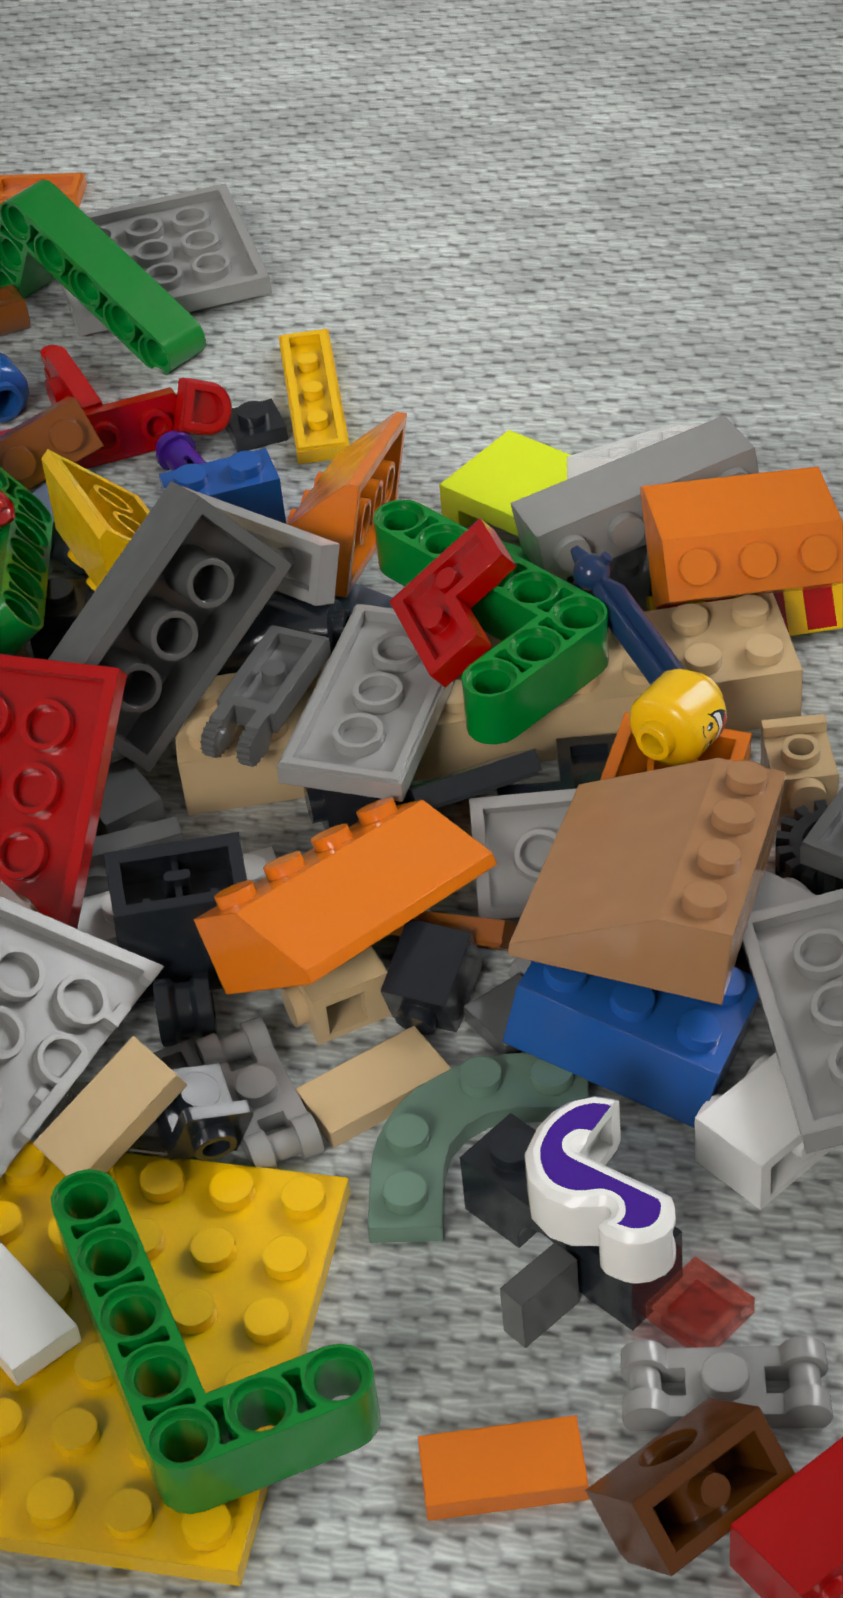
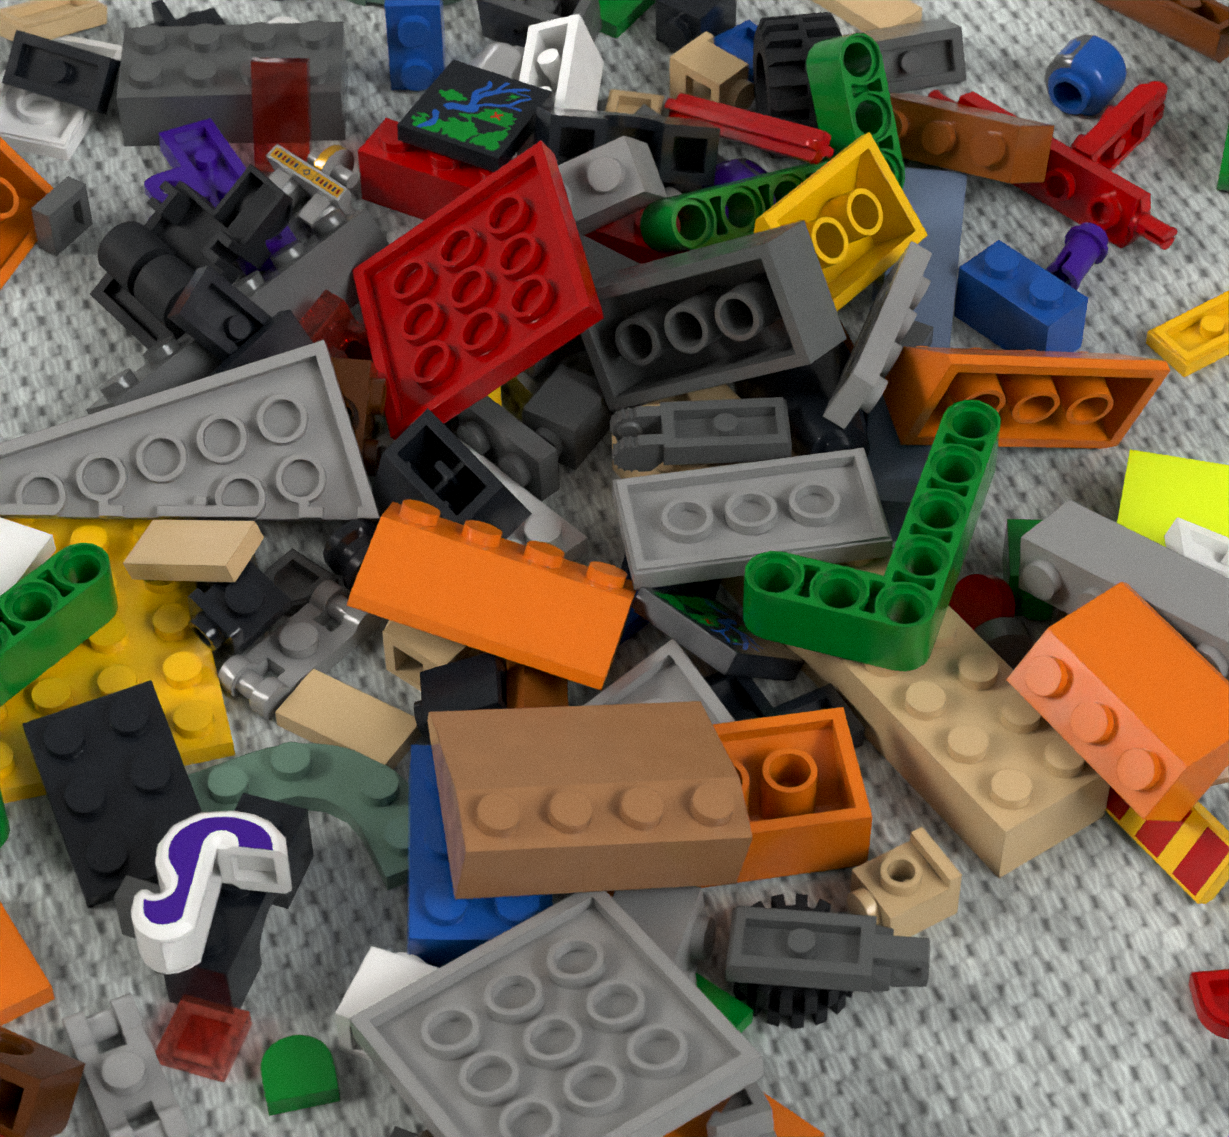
camera: 60 degrees right, 5 degrees up
(201, 407) = (1144, 230): red tile -> none
(256, 425) = (1174, 285): black plate -> none
(367, 1281) = (112, 785): none -> black plate
(440, 600) = (855, 497): red plate -> none
(624, 615) = (925, 682): dark blue wheel -> none
(678, 717) = (830, 742): yellow head -> none
(781, 1244) = (298, 1075): none -> green tile

